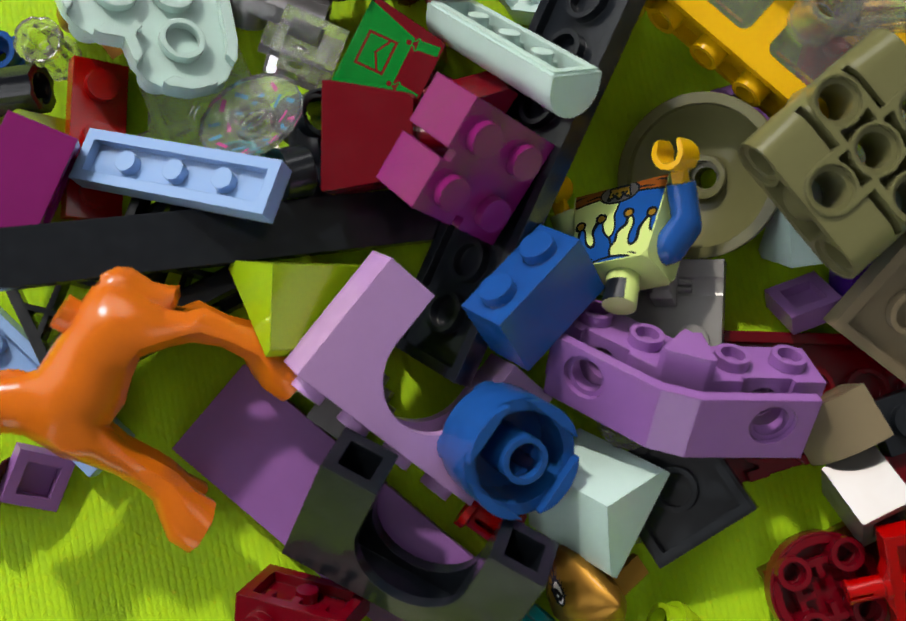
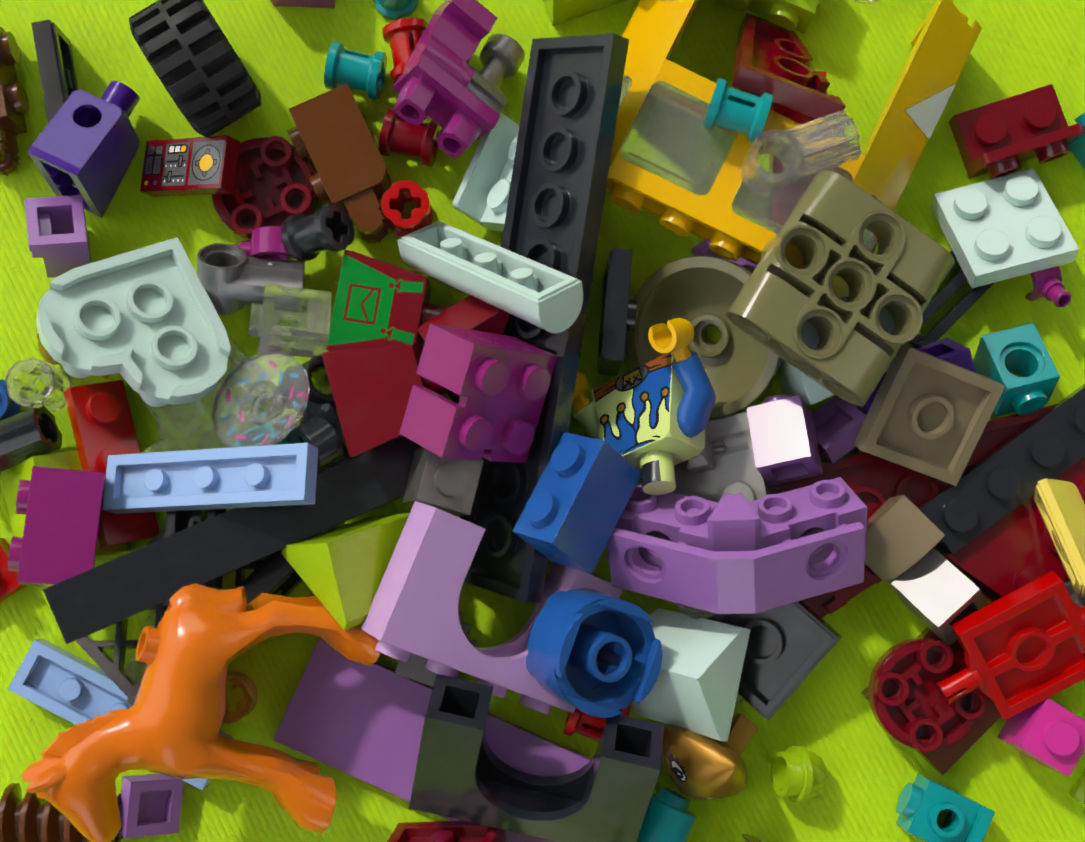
camera: 20 degrees left, 0 degrees up
(153, 409) = (245, 705): none -> clear orange bush
(408, 238) = (443, 482): none -> flat silver brick
(622, 125) = (617, 312): none -> black plate
(753, 296) = (784, 439): none -> brick

